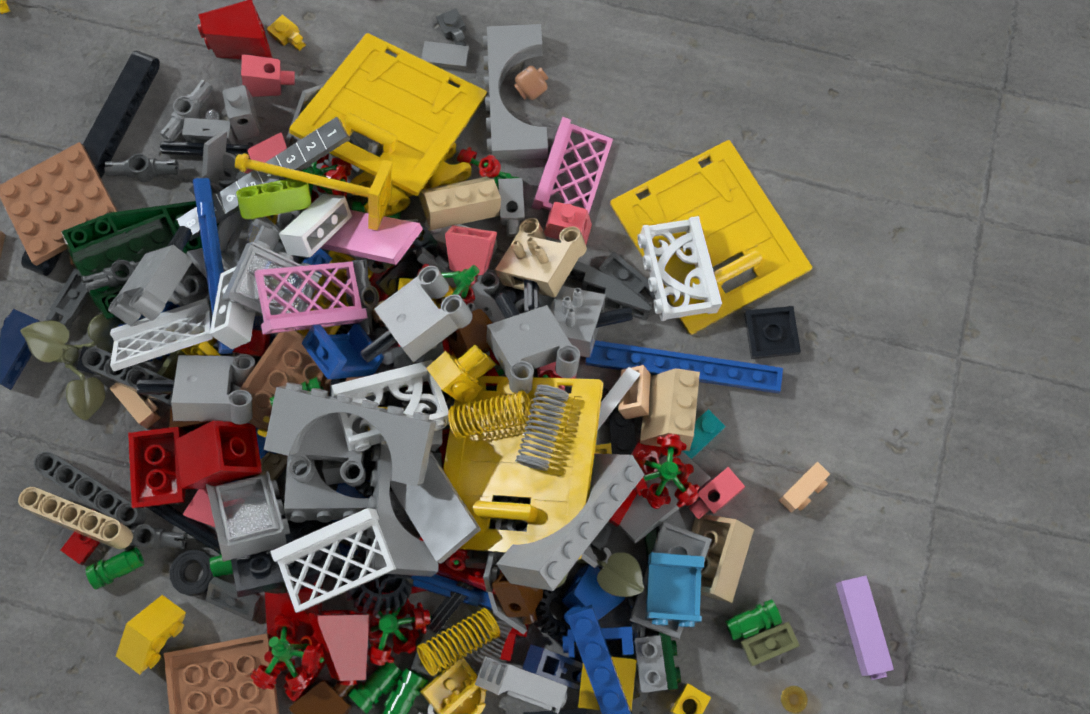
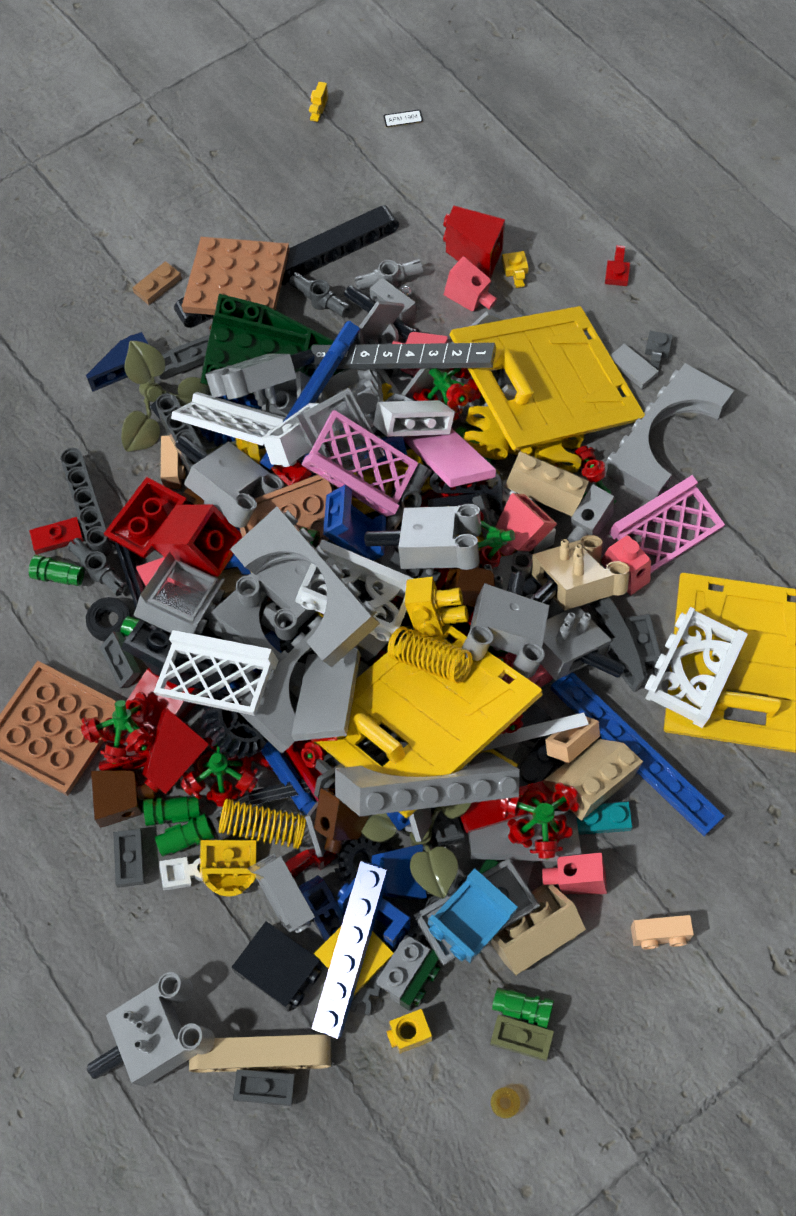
camera: 40 degrees right, 10 degrees down
(75, 517) = (59, 513): tan beam -> none
(108, 276) = (226, 352): dark grey pin -> none
(148, 633) = (39, 633): yellow brick -> none
(239, 106) = (435, 295): light grey torso -> none
(273, 198) = (397, 374): lime beam -> none
(378, 194) = (480, 425): yellow tile -> none
(531, 82) = (688, 433): nougat head -> none
(534, 462) = (433, 714): light grey piece -> none
(772, 332) = (739, 780): black plate -> none
(864, 627) = (619, 1092): lavender brick -> none

